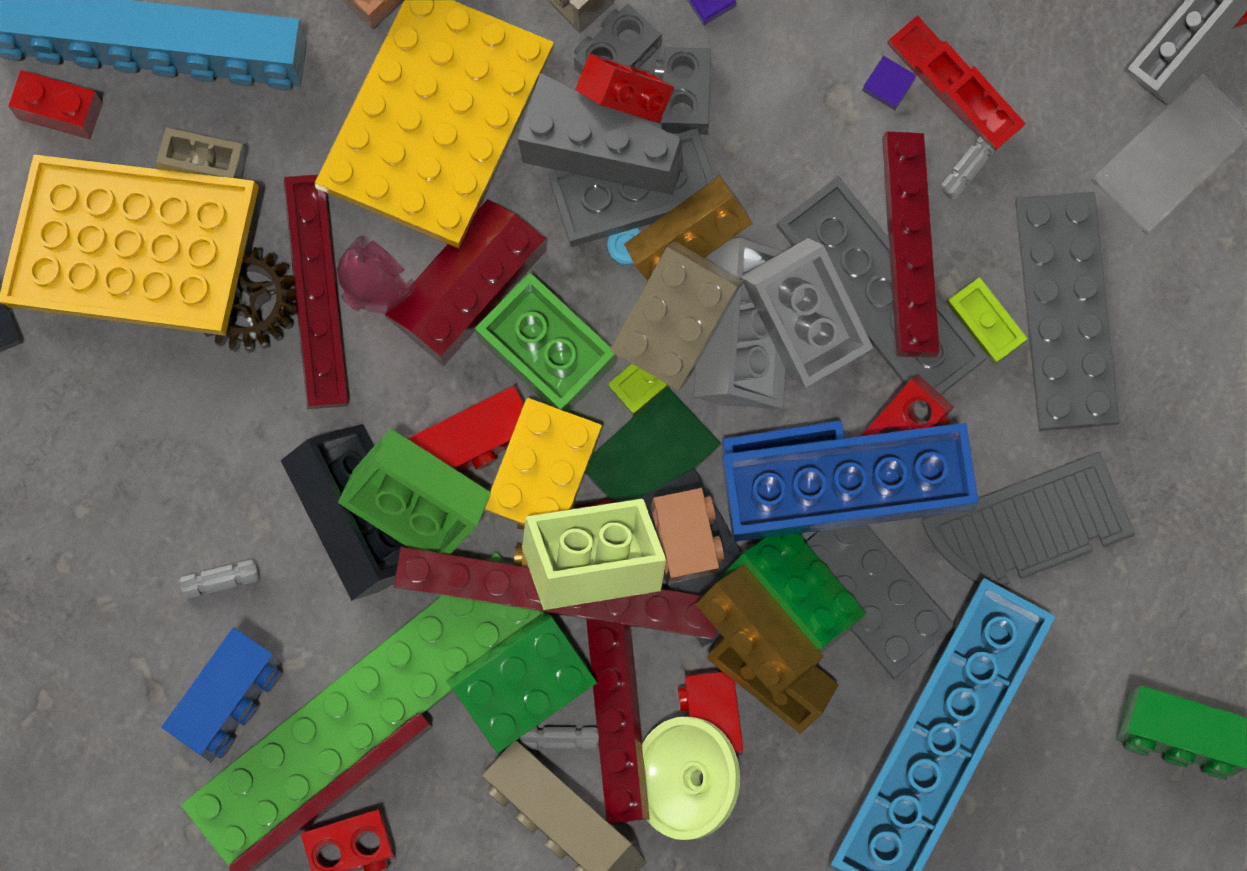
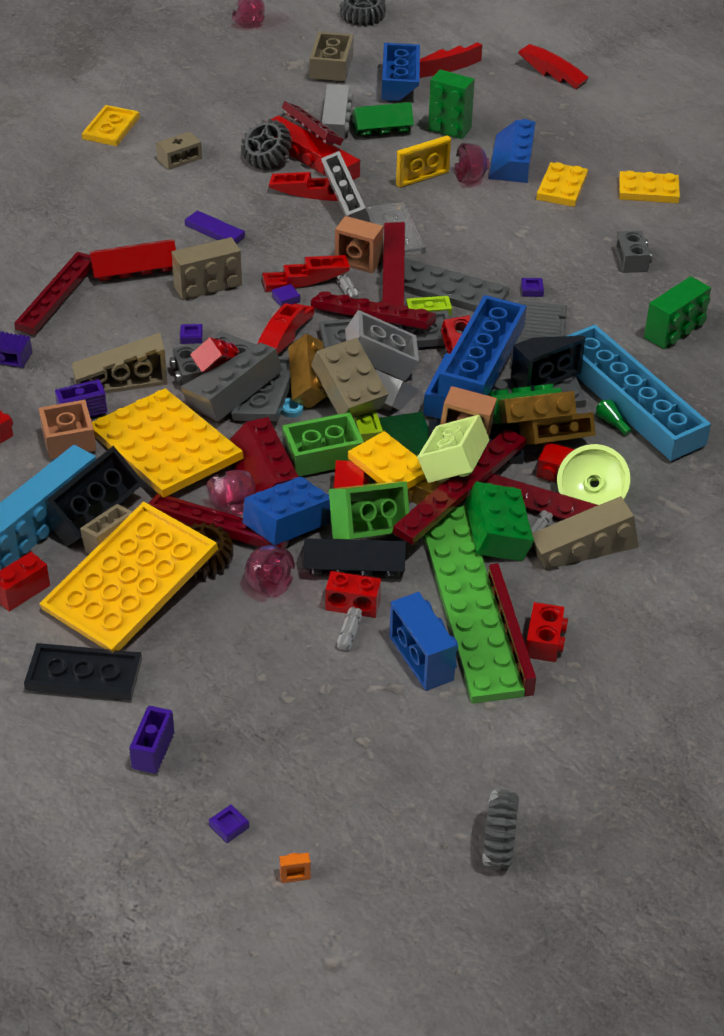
camera: 65 degrees left, 35 degrees down
(244, 102) = (90, 494): none -> black slope
(248, 416) = (269, 570): none -> clear pink cylinder
(272, 553) = (354, 591): none -> red brick
(372, 377) = (287, 510): none -> blue brick
(789, 130) = (283, 324): none -> red slope
(880, 729) = (609, 413): none -> green cone
(894, 580) = (546, 360): none -> black slope
(1035, 220) = (394, 263): none -> dark red tile
(1064, 130) = (360, 243): none -> nougat brick
(1151, 456) = (532, 287): none -> dark purple tile

